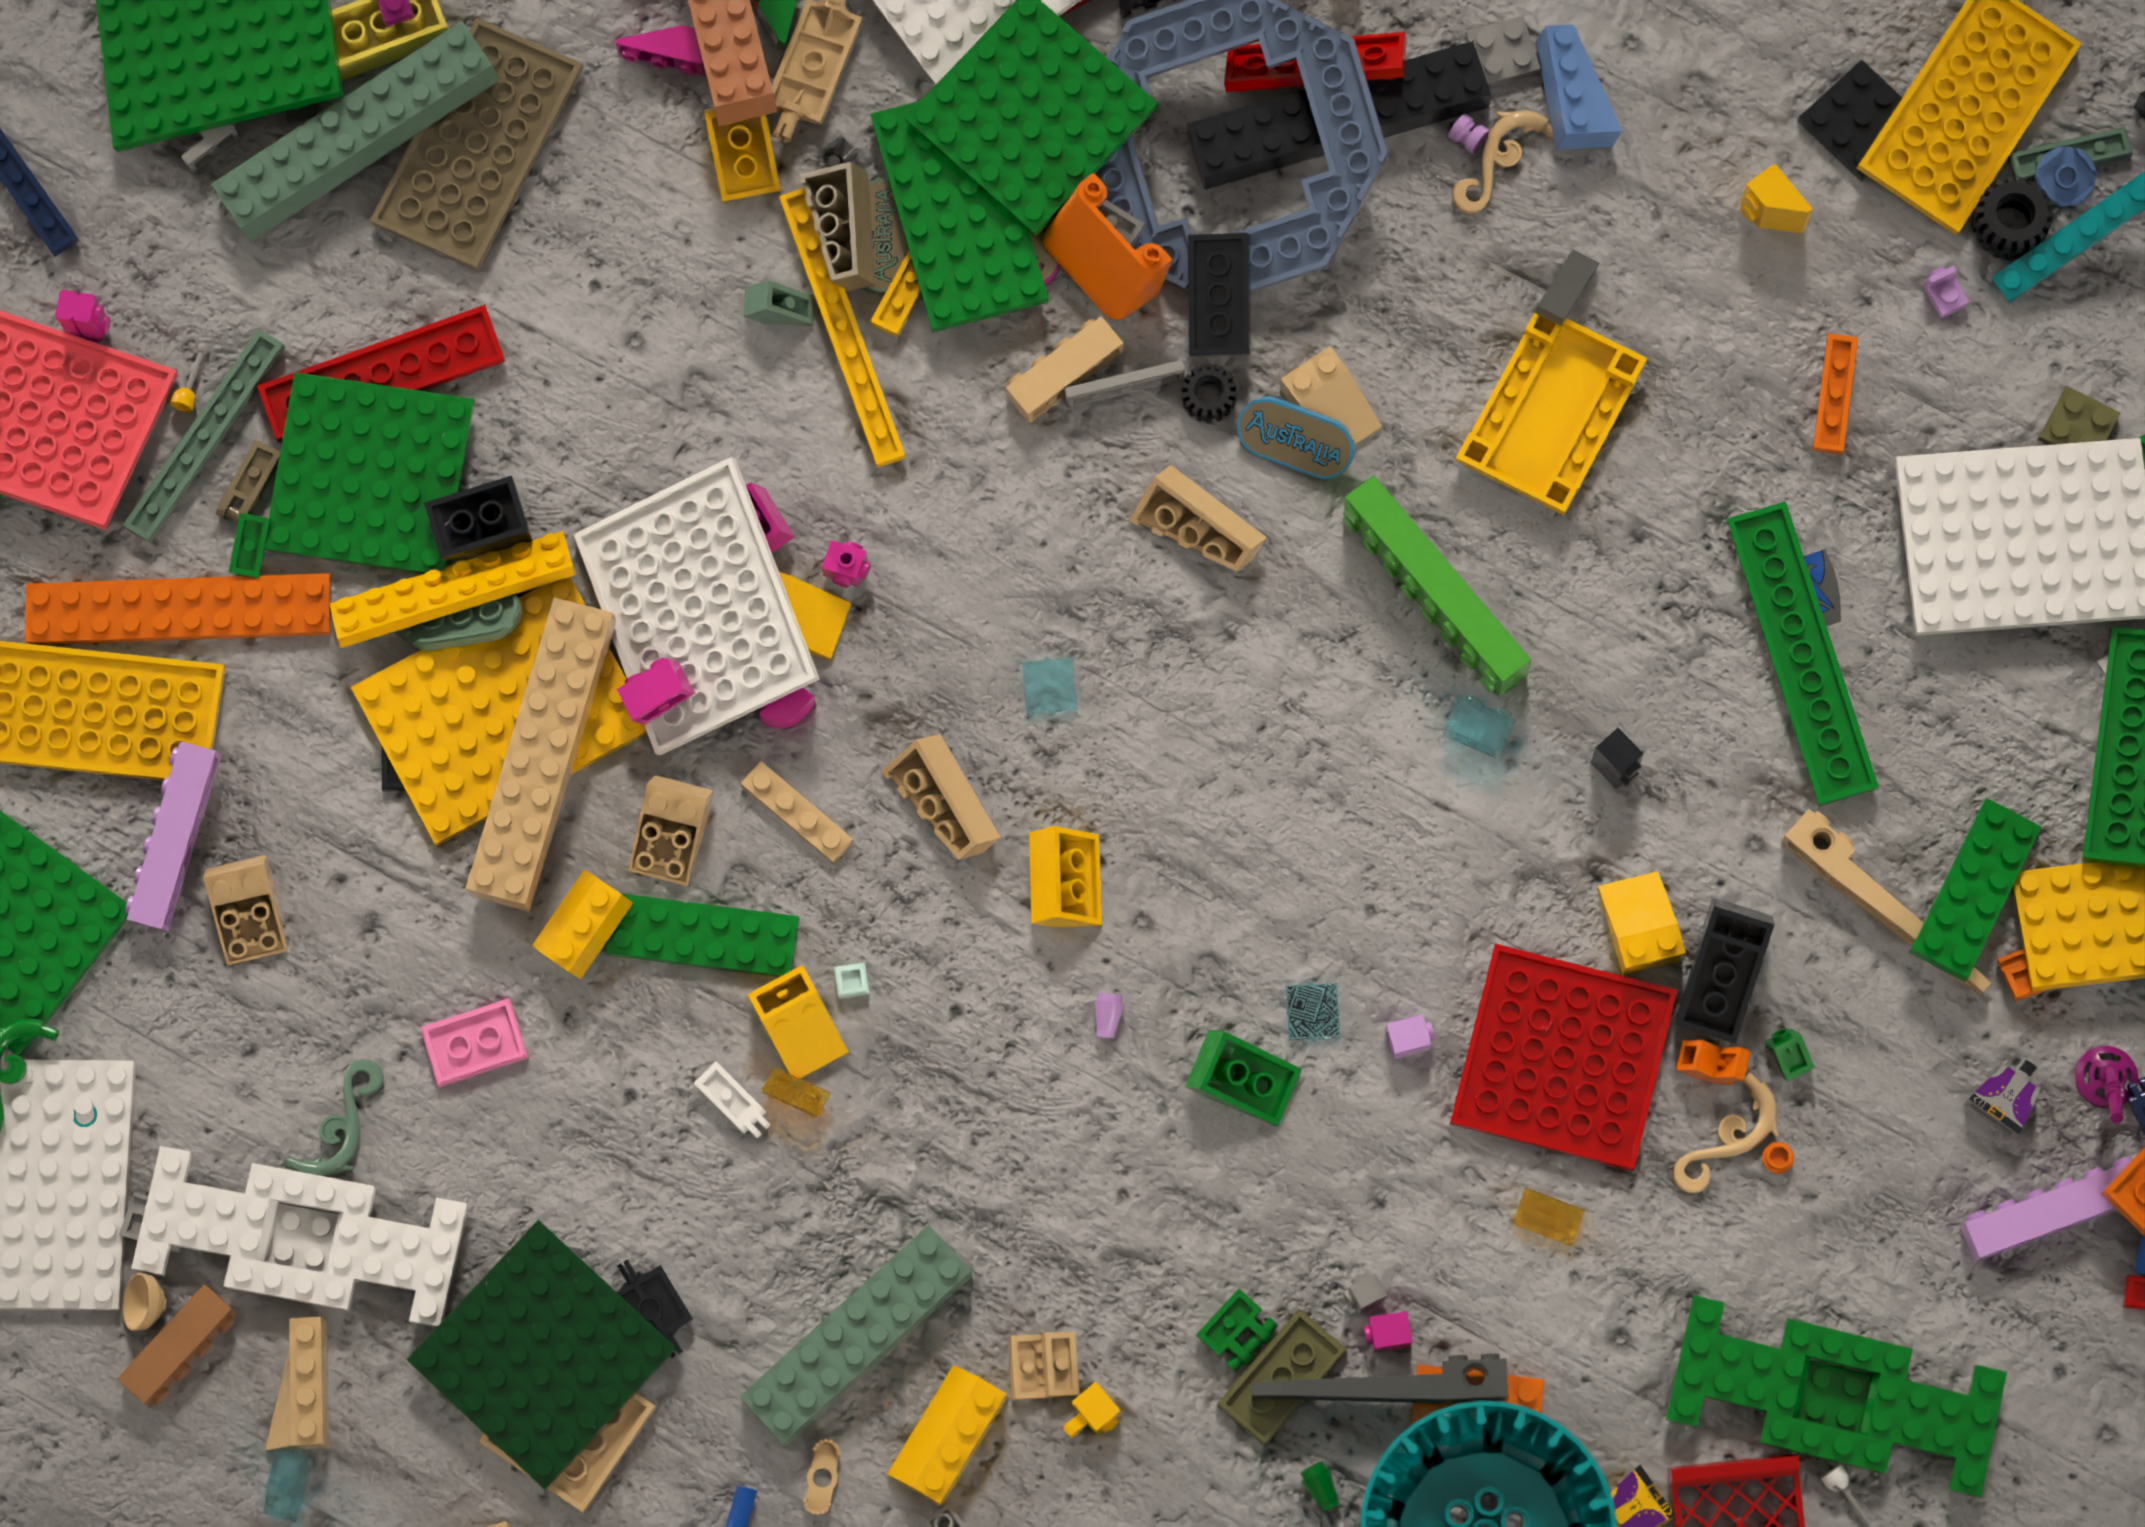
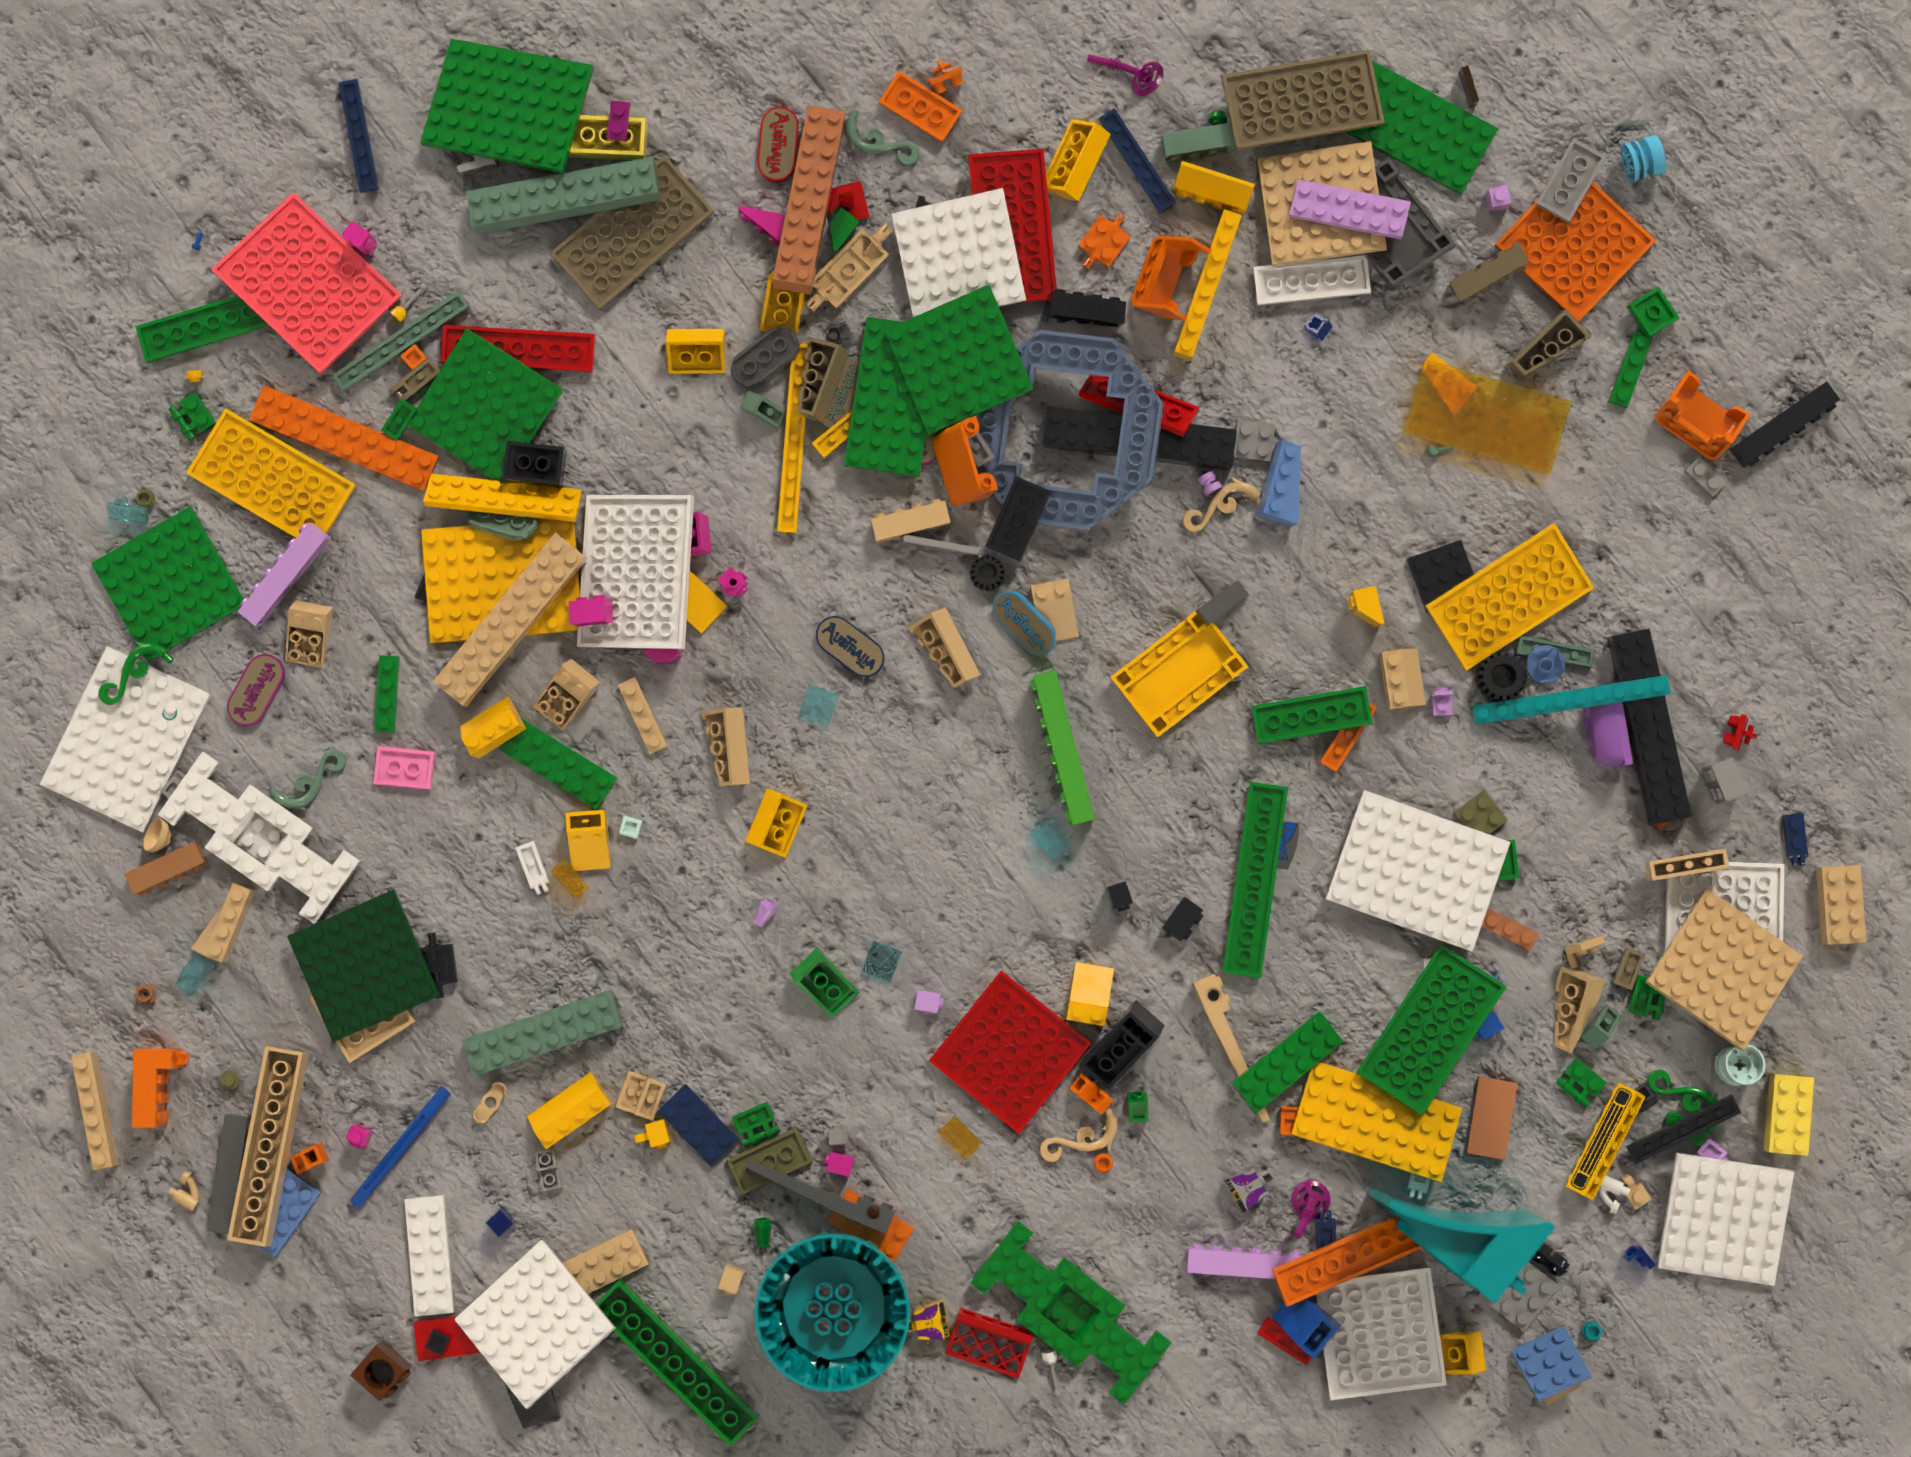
camera: 25 degrees right, 10 degrees up
(201, 1026) = (255, 690): none -> dark tan tile
(232, 450) = (413, 357): none -> orange plate
(401, 946) = (387, 694): none -> green plate
(644, 266) = (696, 351): none -> yellow slope
(748, 231) = (765, 356): none -> dark grey tile
(1057, 582) = (850, 646): none -> dark tan tile
(1151, 1371) = (698, 1125): none -> dark blue plate
(1724, 755) = (1182, 919): none -> black brick
(1770, 387) = (1312, 715): none -> green plate
(1872, 284) = (1402, 679): none -> tan slope

